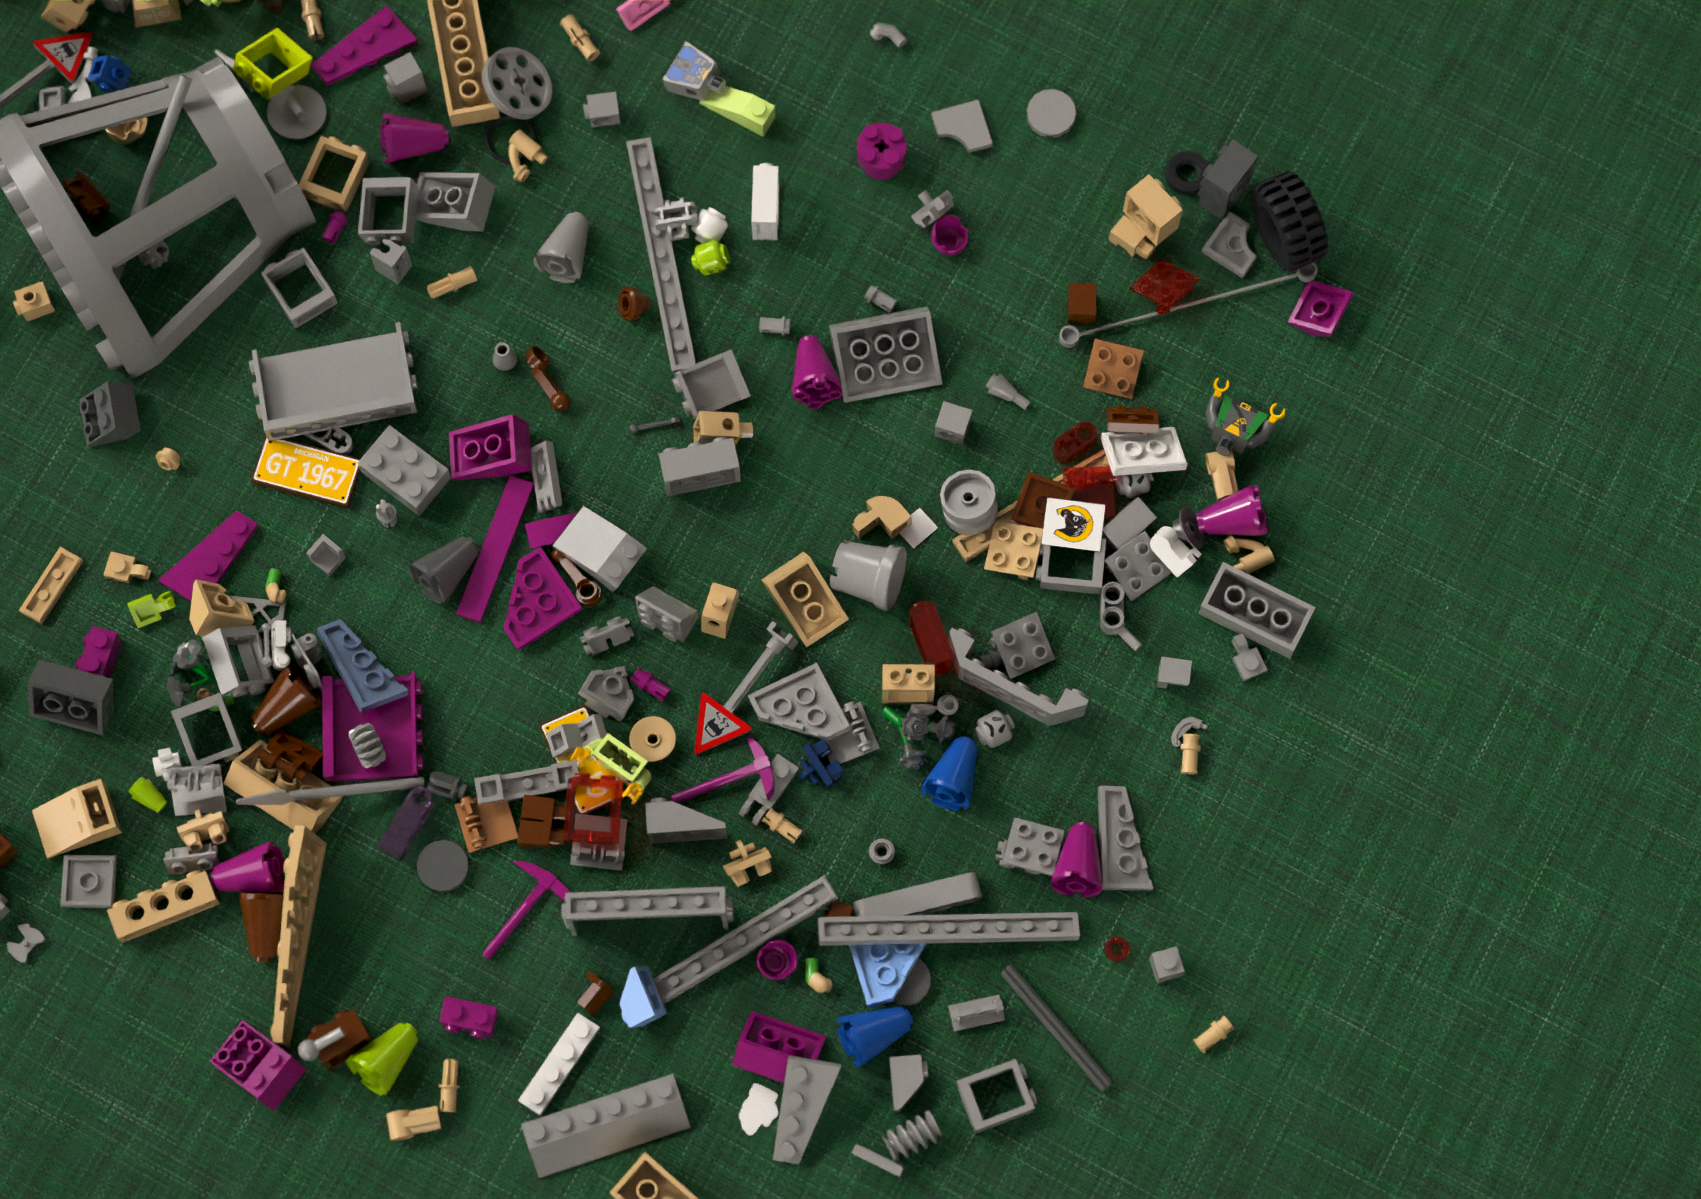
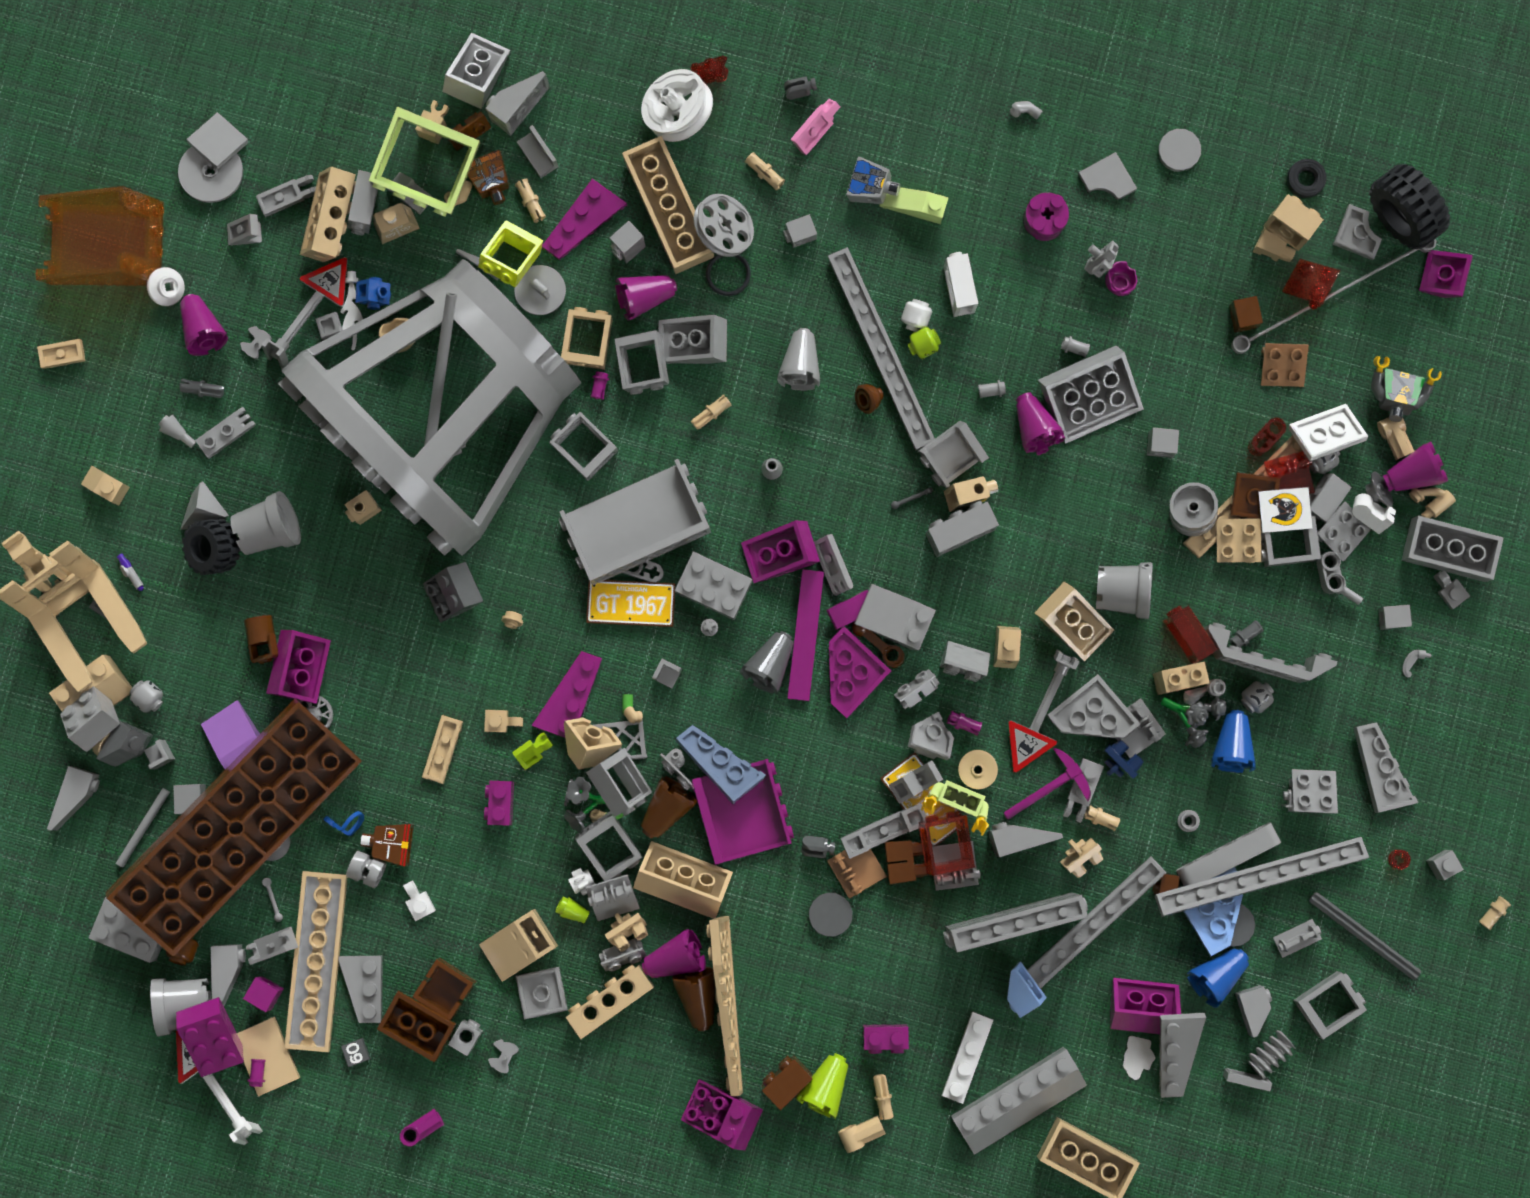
camera: 10 degrees left, 10 degrees up
(70, 697) = (487, 845): dark grey brick -> none
(89, 197) = (386, 407): reddish brown hinge -> none
(266, 661) = (642, 777): light grey hinge -> none
(279, 639) = (649, 759): white plate -> none
(284, 796) = (692, 891): light grey piece -> none
(293, 750) = (683, 846): reddish brown plate -> none
(310, 1049) = (768, 1101): light grey bar -> none
(367, 745) = (745, 830): light grey gear -> none
(393, 263) = (658, 408): light grey hinge -> none
(406, 824) = (792, 888): clear purple piece -> none
(529, 148) = (746, 279): tan plant -> none
(539, 361) = (802, 465): reddish brown piece -> none
(545, 882) = (918, 907): magenta piece -> none
(595, 995) = (984, 995): reddish brown tile -> none
(677, 221) = (888, 317): light grey piece -> none
(777, 960) = (1126, 932): magenta hair -> none
(815, 979) = (1159, 940): tan arm -> none
(882, 511) = (1126, 533): tan brick -> none
(919, 529) = (1150, 538): white sticker -> none
(1002, 388) = (1194, 402): light grey cone -> none
(1022, 645) = (1264, 621): light grey hinge -> none
(1078, 863) = (1354, 795): magenta cone -> none
(1135, 420) = (1312, 407): reddish brown plate -> none
(1190, 753) = (1422, 681): tan pin -> none
(1226, 179) = (1347, 180): dark grey brick -> none

